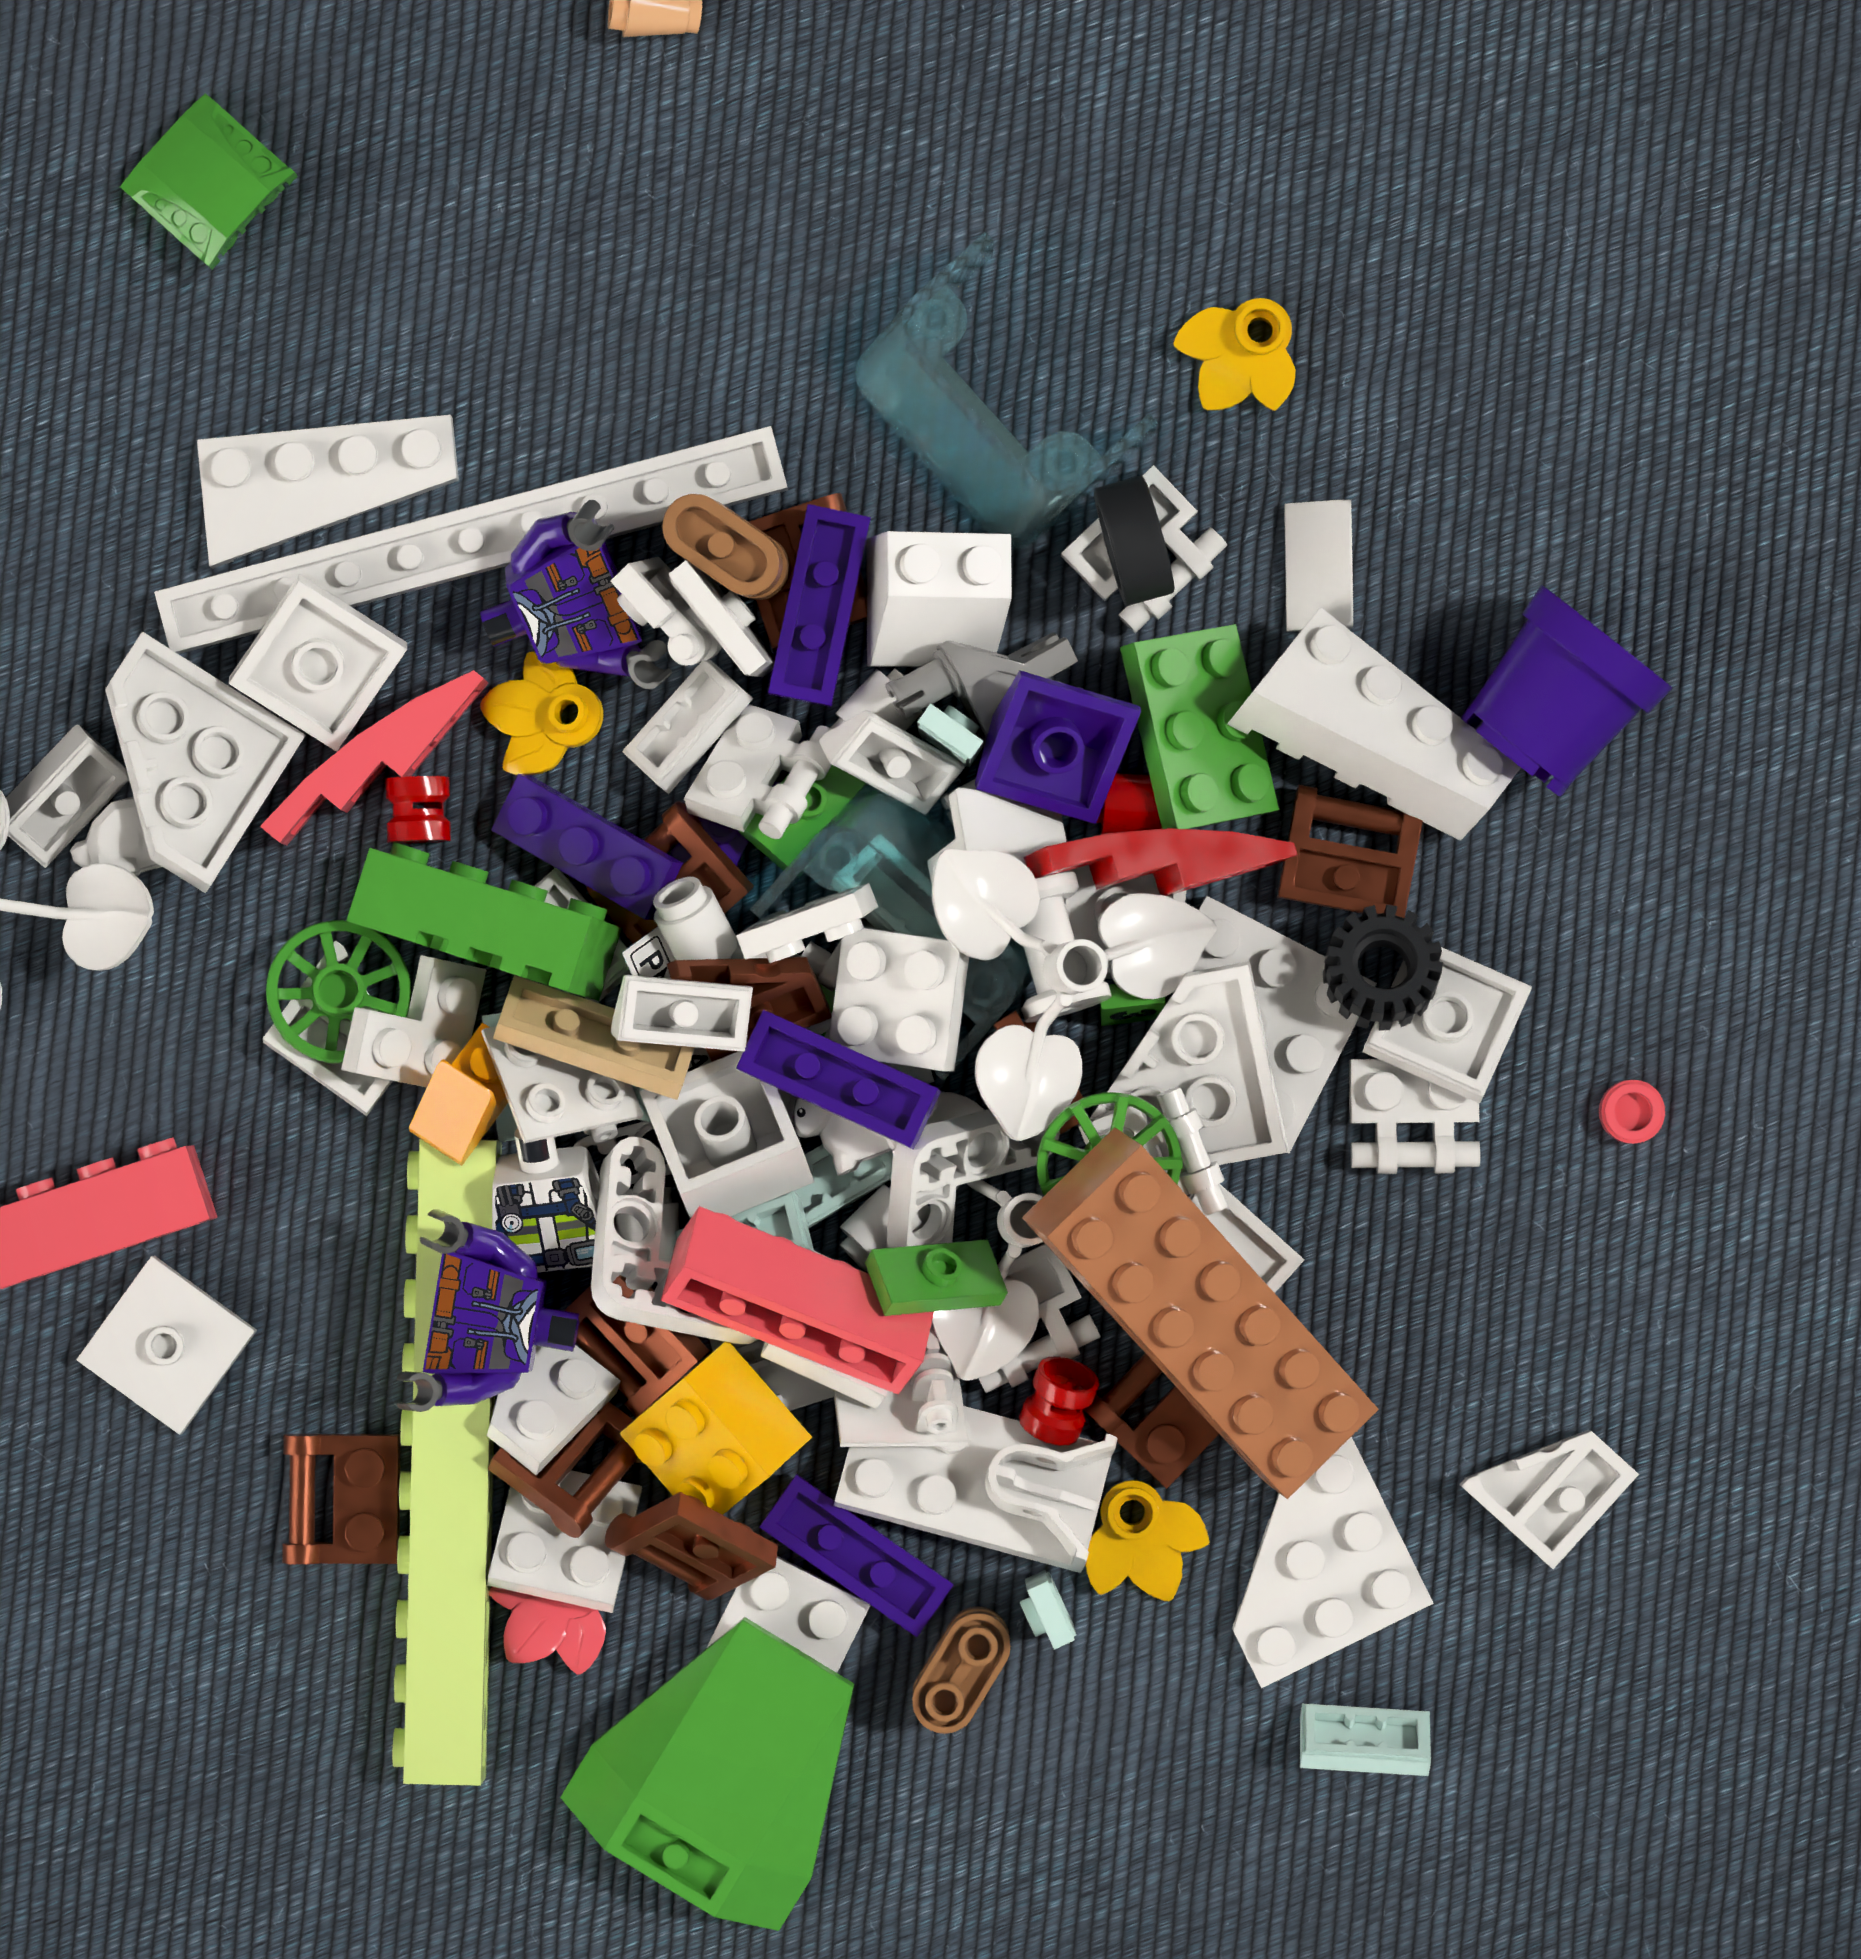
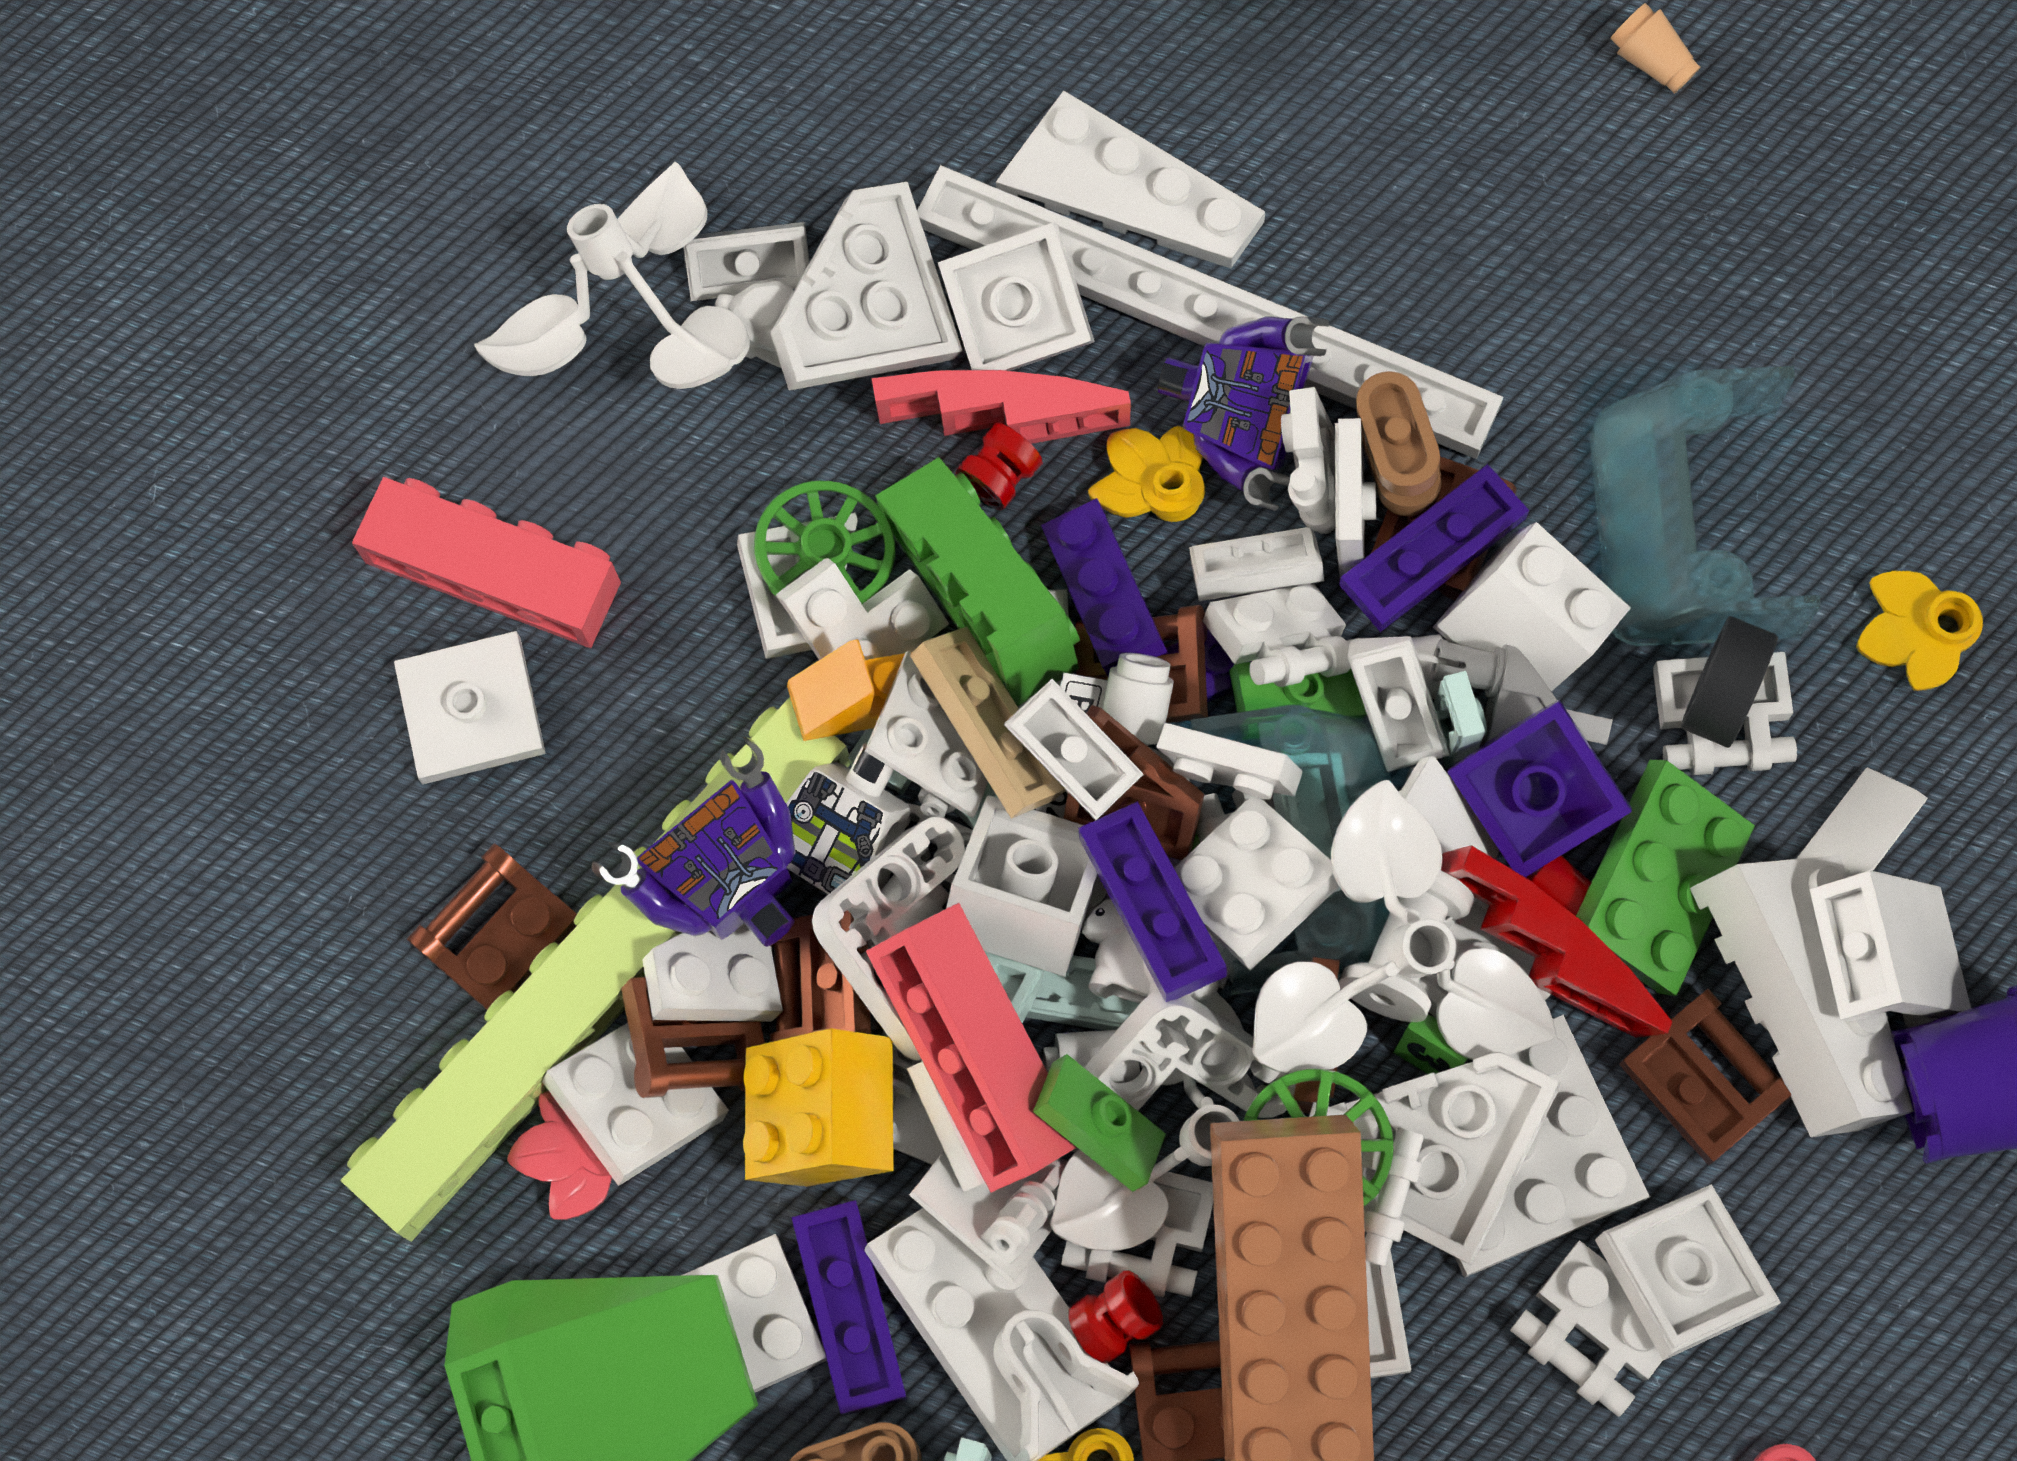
camera: 45 degrees right, 15 degrees down
(694, 1545) = (727, 1181): copper plate -> none
(1387, 931) = (1691, 1157): black tyre -> none
(1414, 657) = (1889, 948): none -> white panel

